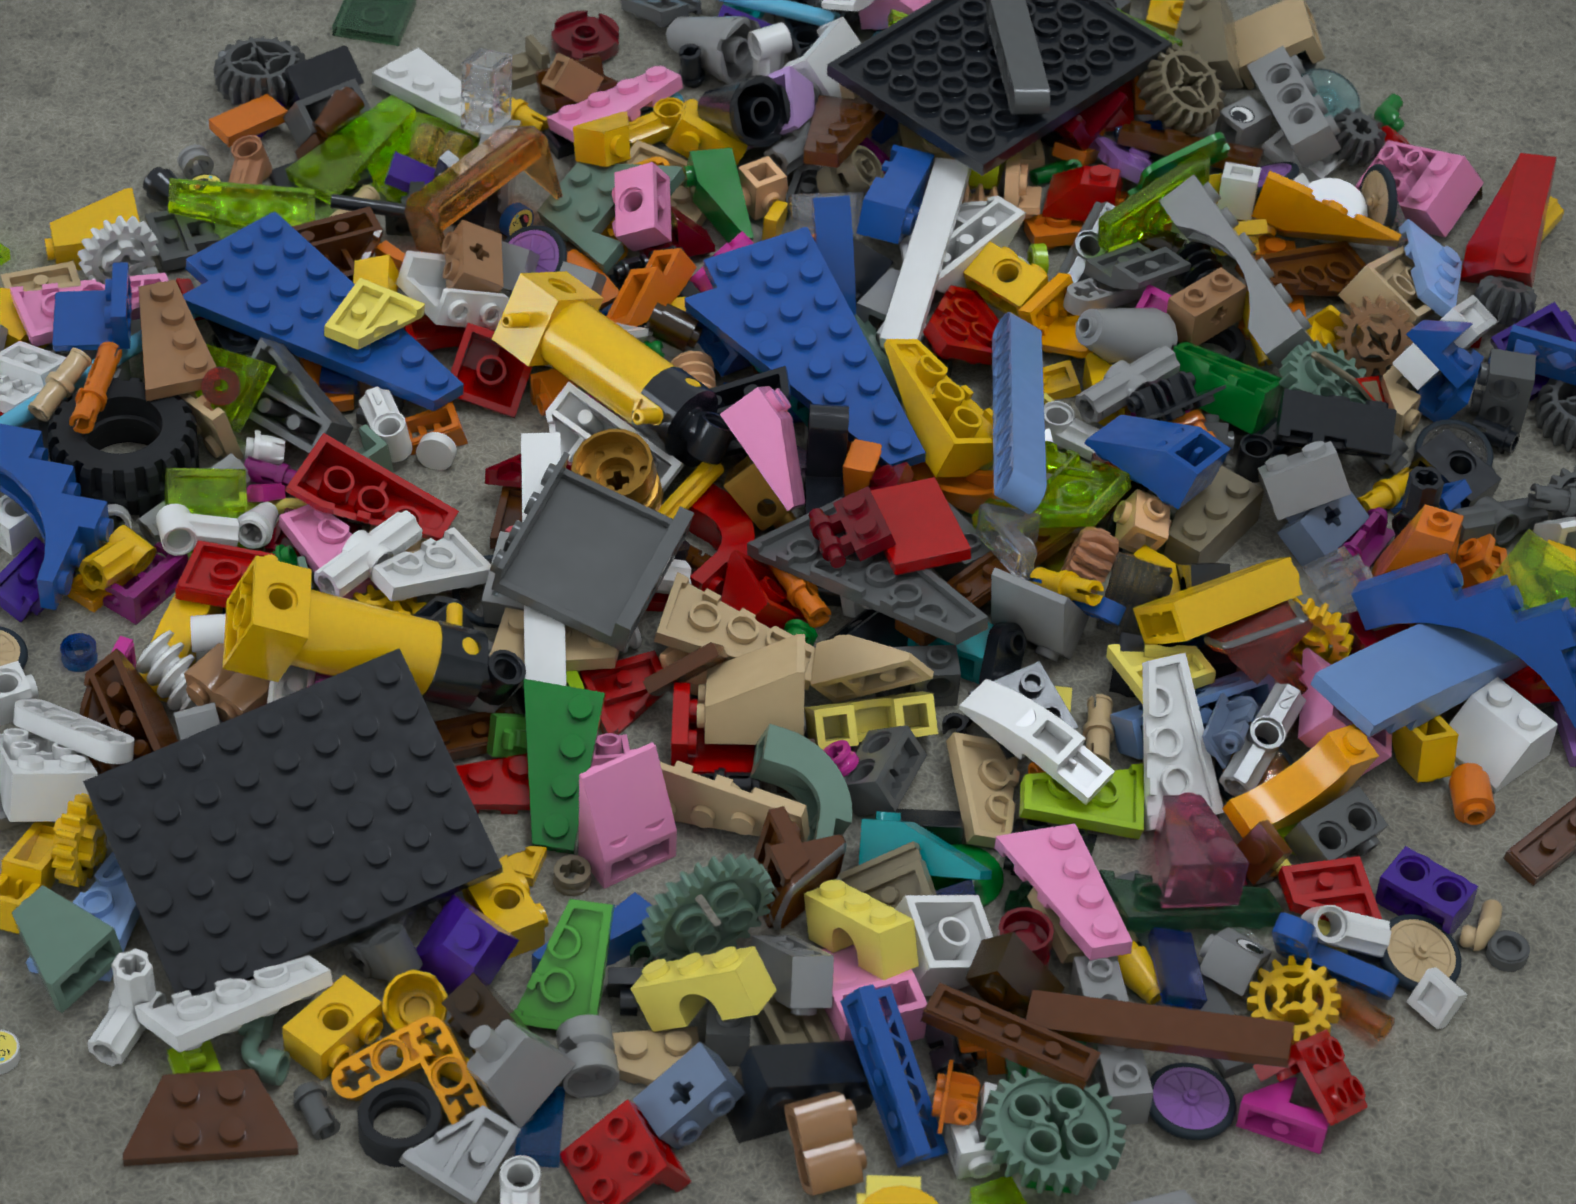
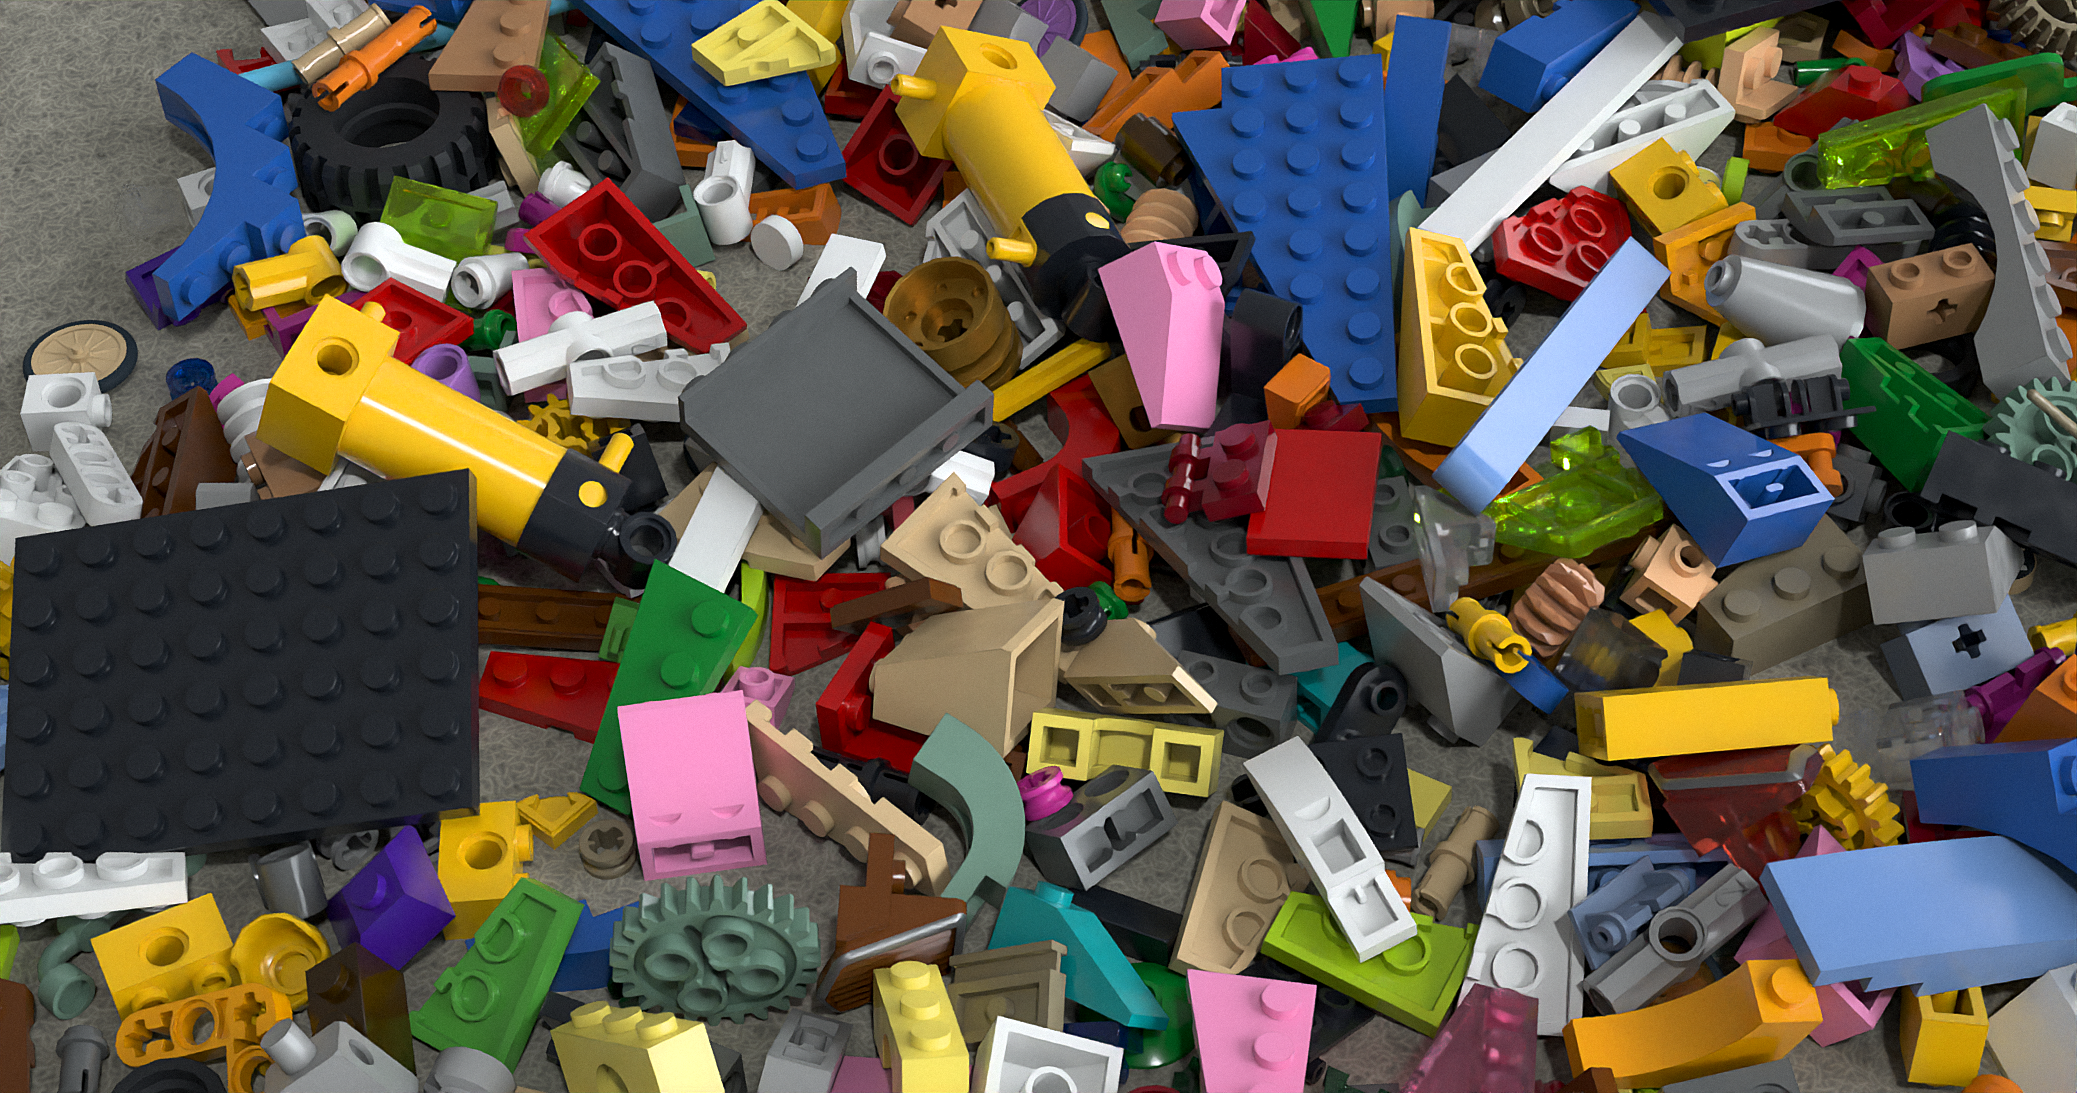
camera: 30 degrees right, 0 degrees up
(813, 635) = (1082, 616): none -> black bush

